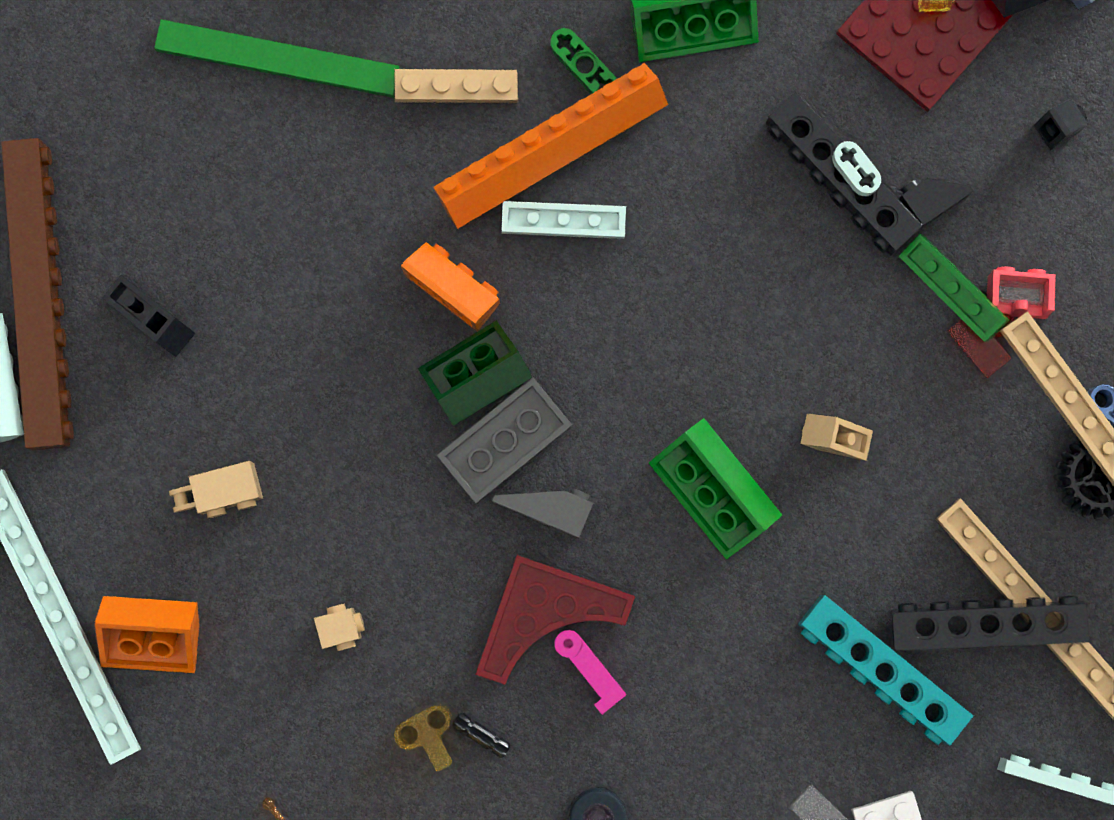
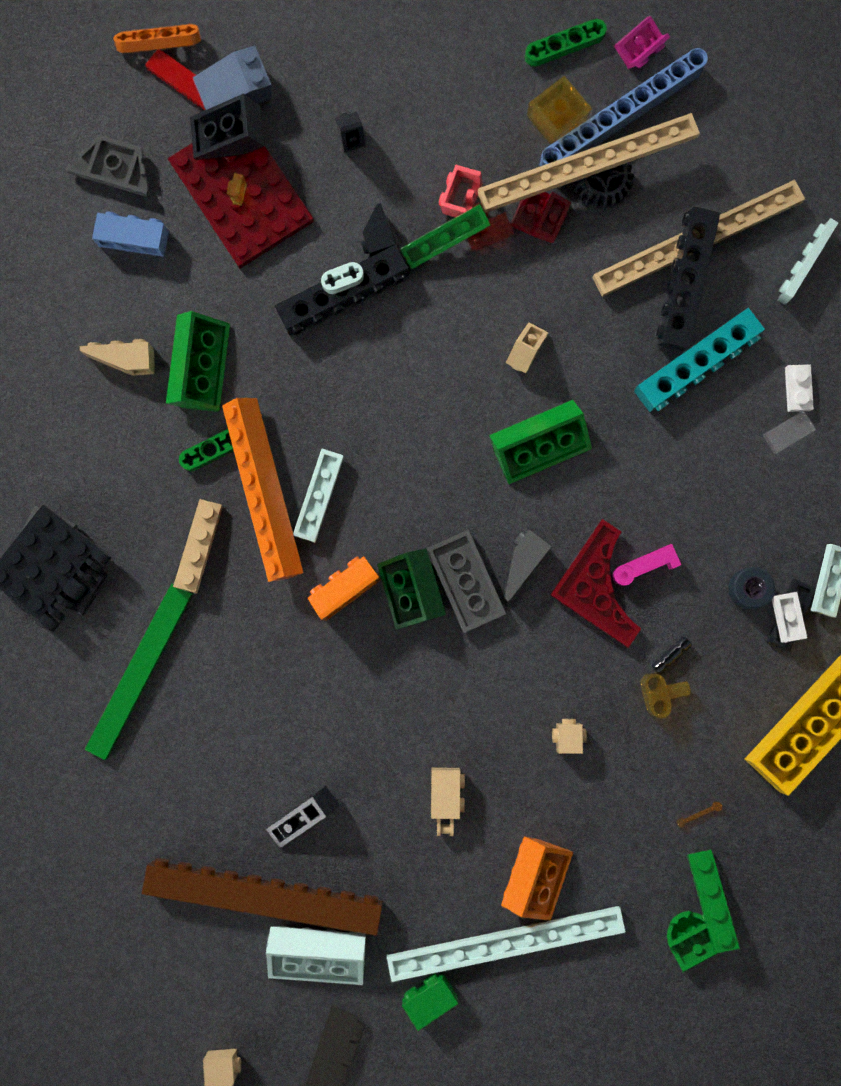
camera: 65 degrees left, 0 degrees up
(1022, 409) = (541, 215): none -> dark red slope

